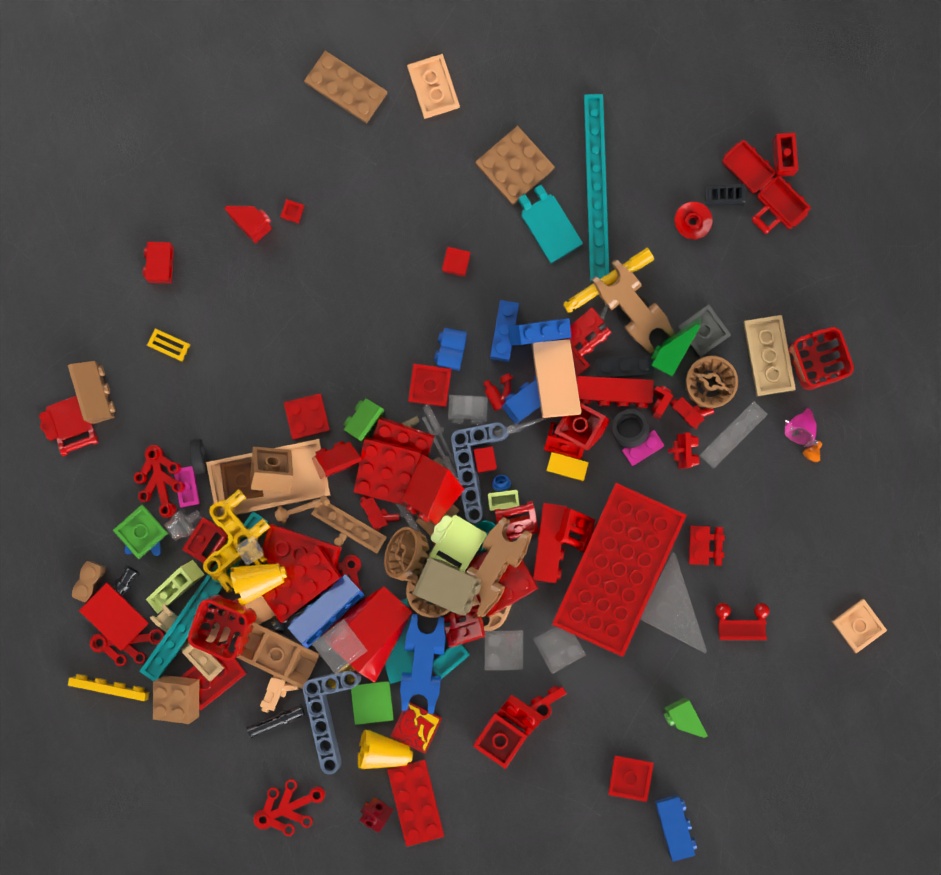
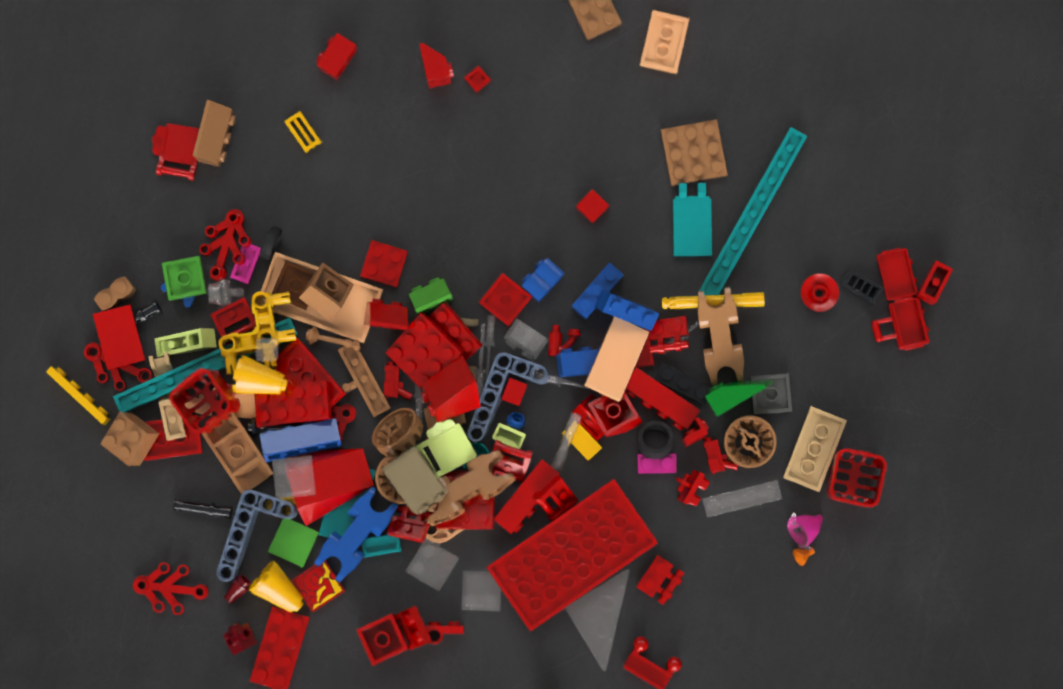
camera: 30 degrees right, 0 degrees up
(275, 689) = (219, 480): light nougat piece -> none
(348, 771) = (238, 587): none -> dark red cone
(557, 488) = (570, 430): none -> clear piece

